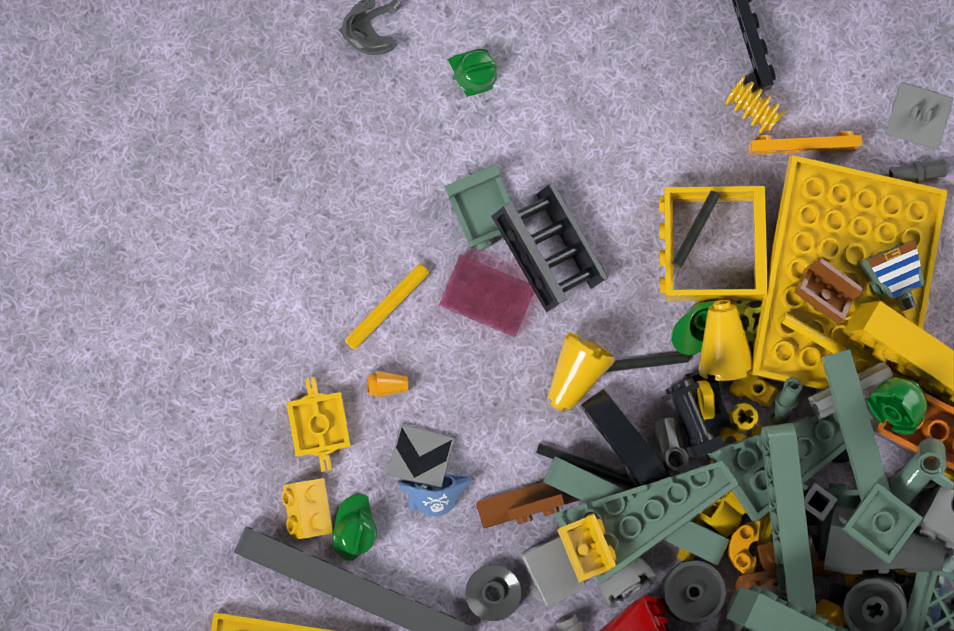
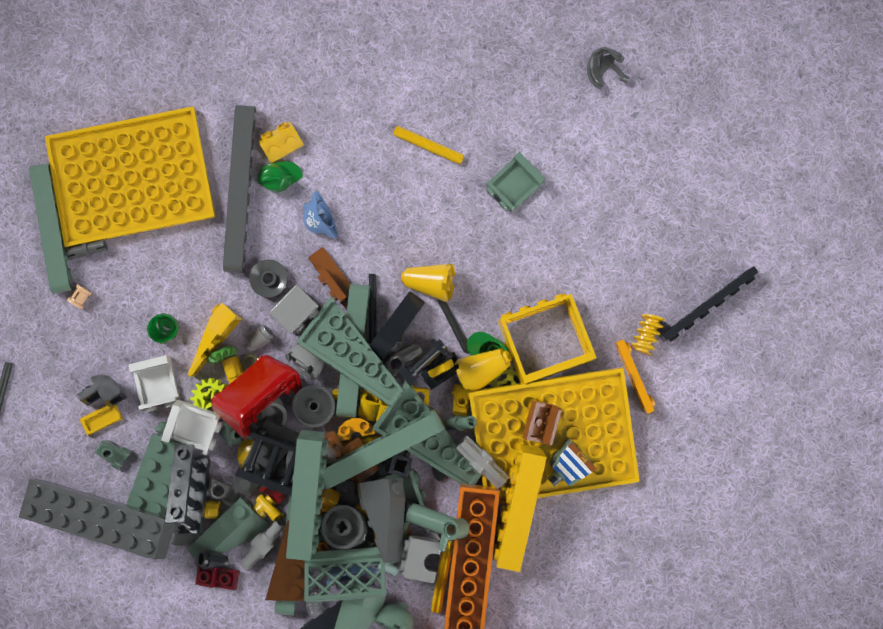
camera: 75 degrees right, 0 degrees up
(318, 424) = (336, 129): yellow plate -> none
(385, 384) = (378, 162): light orange cone -> none
(420, 456) = (339, 200): light grey piece -> none
(474, 71) = (602, 145): green piece -> none
(487, 296) = (458, 206): clear pink plate -> none
(530, 259) = (487, 228): black fence -> none
(587, 548) = (315, 323): yellow bracket -> none
(695, 229) = (551, 322): pearl dark grey bar -> none
(751, 419) = (436, 391): yellow axle -> none
(814, 335) = (508, 429): yellow bar -> none
(854, 421) = (453, 476): sand green tile -> none
(882, 523) = (400, 510): sand green plate -> none
(899, 403) = (484, 494): green cylinder -> none
(919, 116) = (682, 446): light grey piece -> none
(919, 171) = (645, 459): dark grey pin -> none

